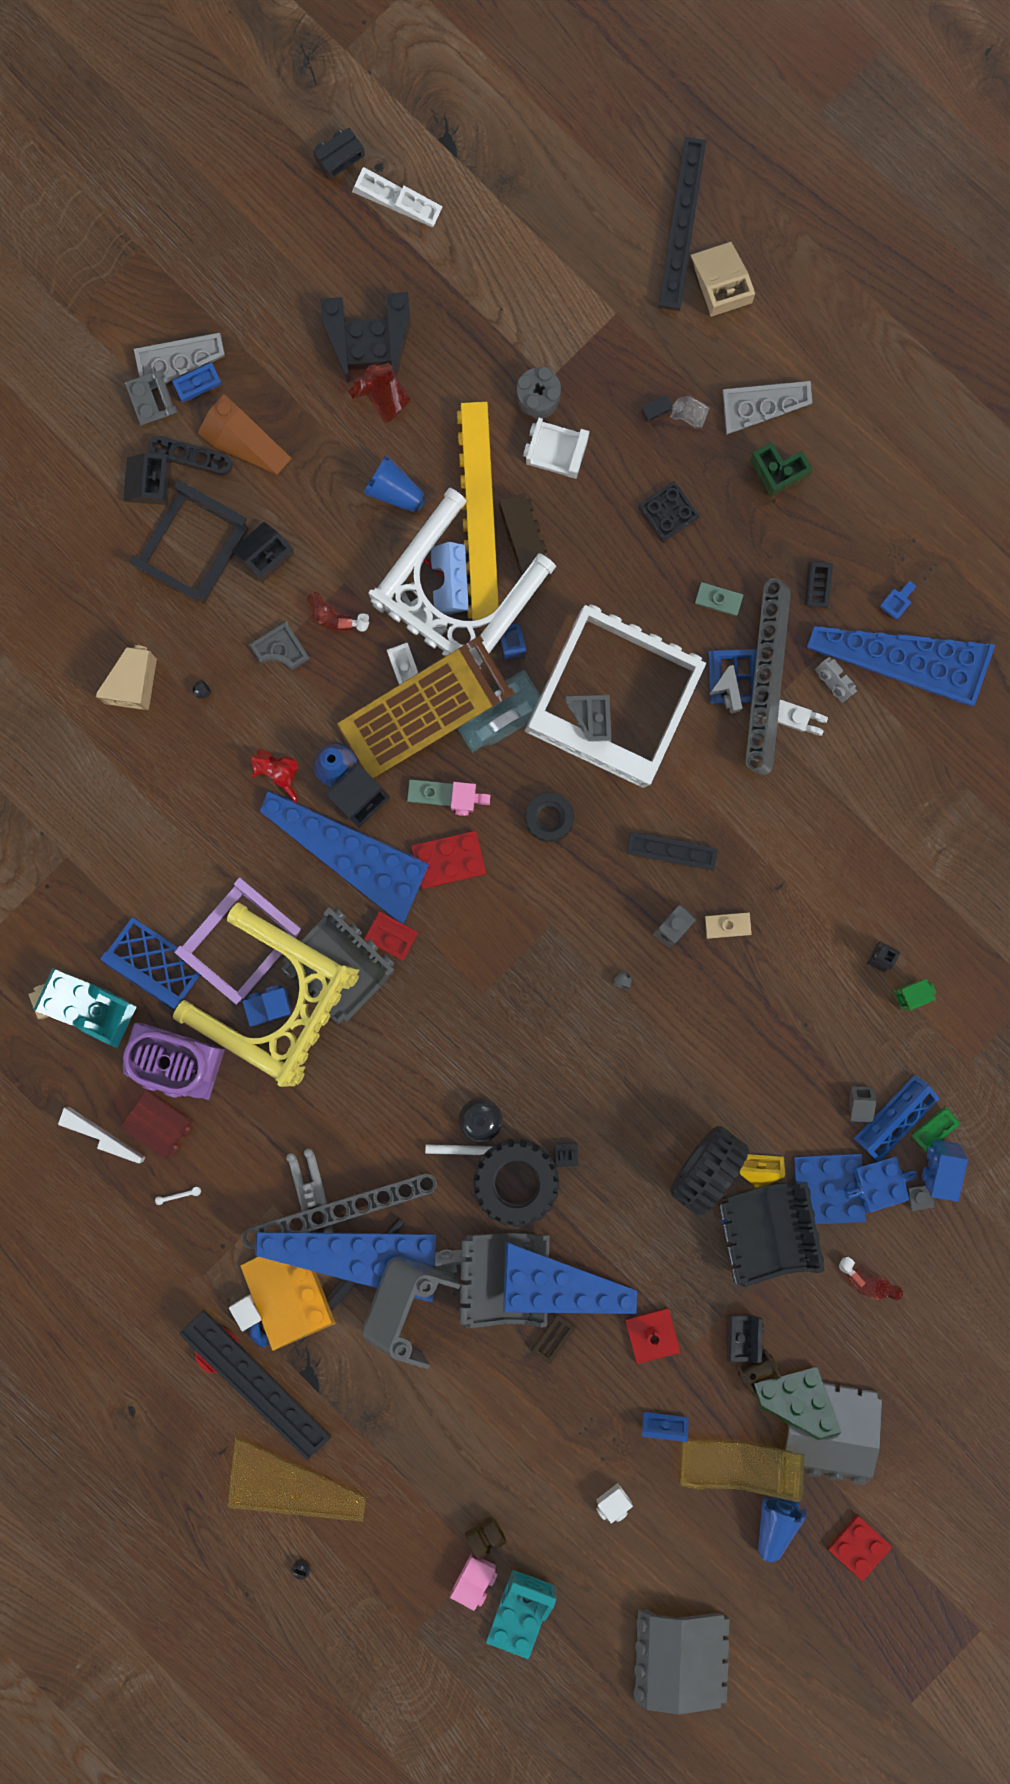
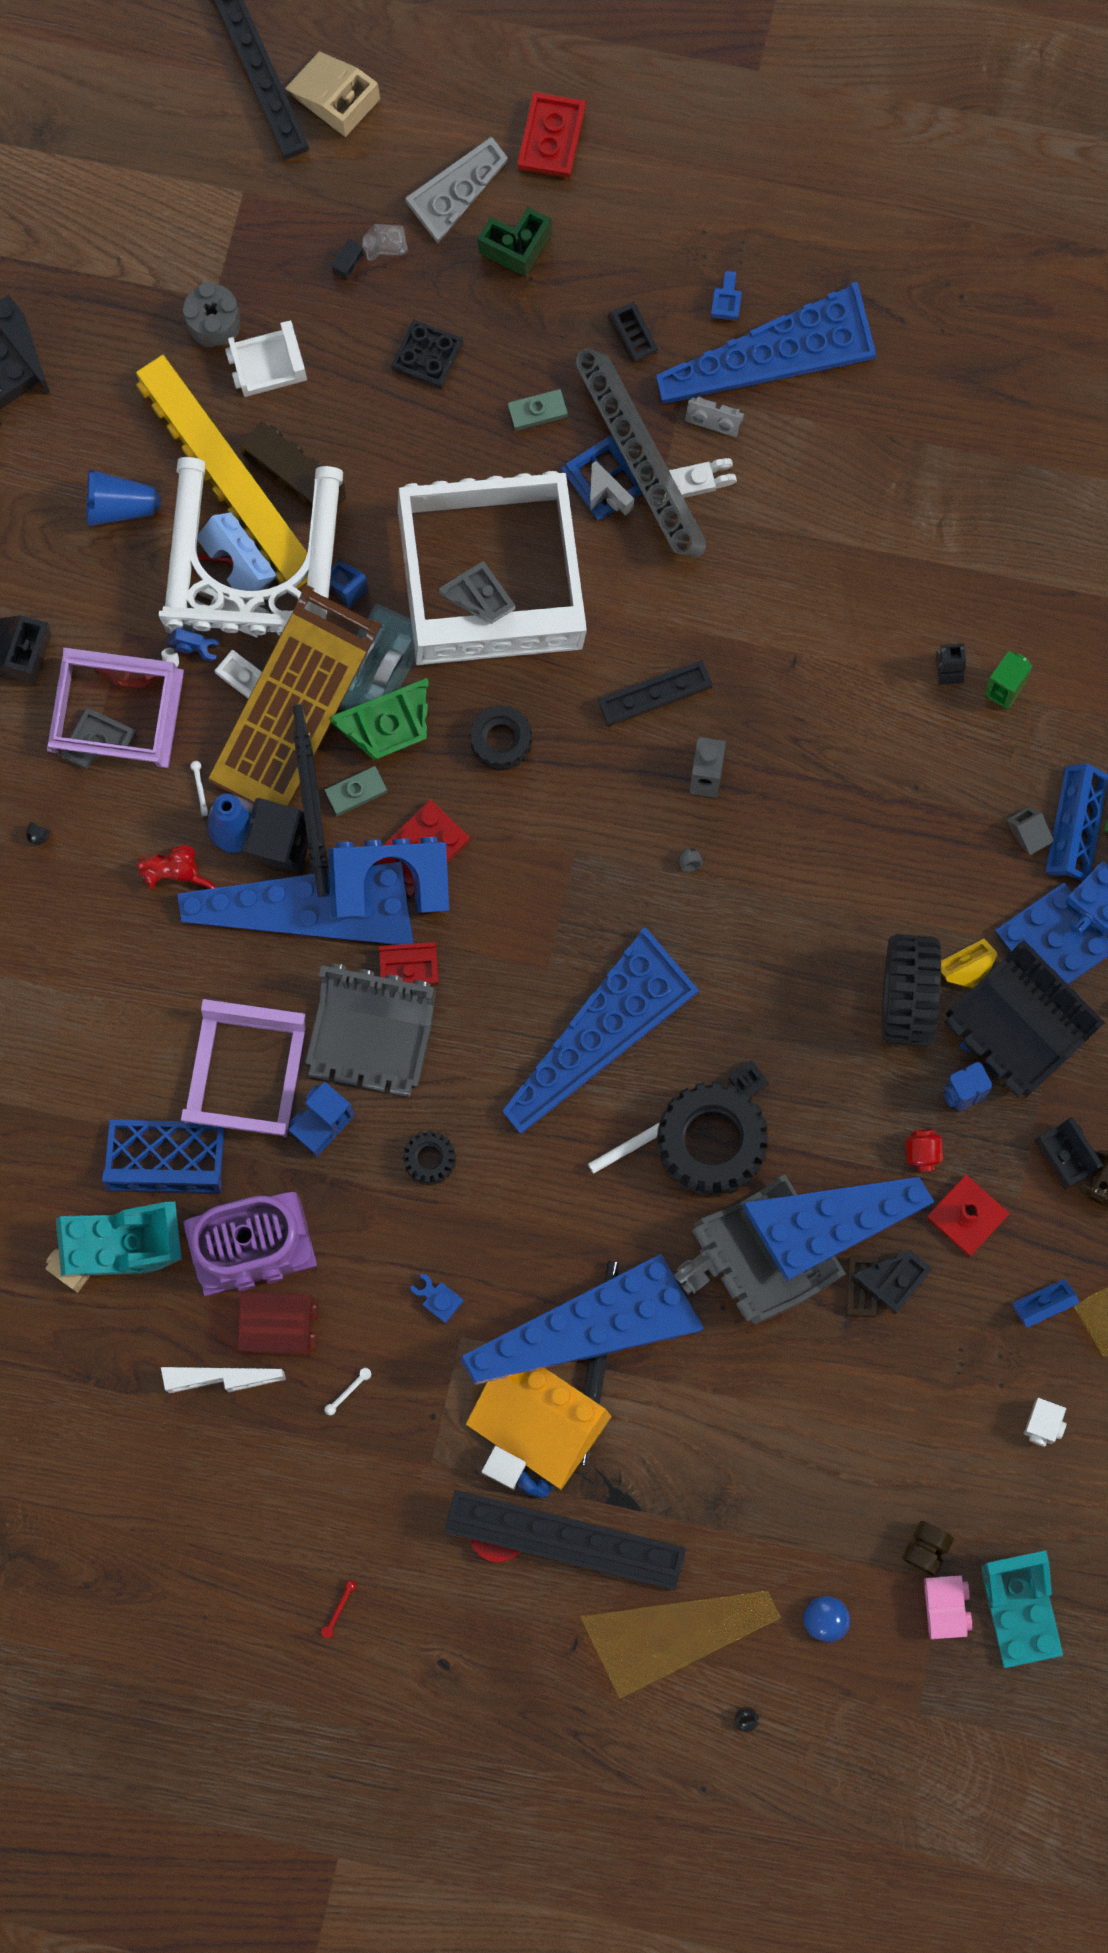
camera: 25 degrees left, 10 degrees down
(70, 1343) = (327, 1632): none -> red hinge
(274, 1174) = (440, 1300): none -> blue plate
(291, 1071) = (387, 1172): light yellow arch -> none
(309, 1193) = (493, 1291): light grey piece -> none
(334, 664) = (167, 713): none -> lavender piece
(334, 708) = (196, 766): none -> white hinge
(338, 1075) = (434, 1174): none -> black tyre
(349, 1203) = (544, 1276): dark grey beam -> none
(379, 619) = (188, 642): none -> blue plate
(383, 389) = (44, 409): clear red bracket -> none
(392, 848) = (350, 864): none -> blue arch
(392, 1302) = (661, 1350): dark grey windscreen -> none
(392, 1539) = (827, 1619): none -> blue hair
(393, 785) = (310, 800): none -> black axle
(465, 797) = (397, 771): bright pink brick -> none
(480, 759) = (387, 721): none -> green wing
(480, 1120) = (630, 1101): black cylinder -> none
(516, 1055) = (627, 1006): none -> blue wing
(576, 1349) = (894, 1279): none -> black wing
(651, 1275) = (924, 1149): none -> red head
(705, 1255) = (967, 1087): none -> blue brick
(728, 925) = (765, 734): tan plate -> none
(853, 404) = (551, 135): none -> red plate

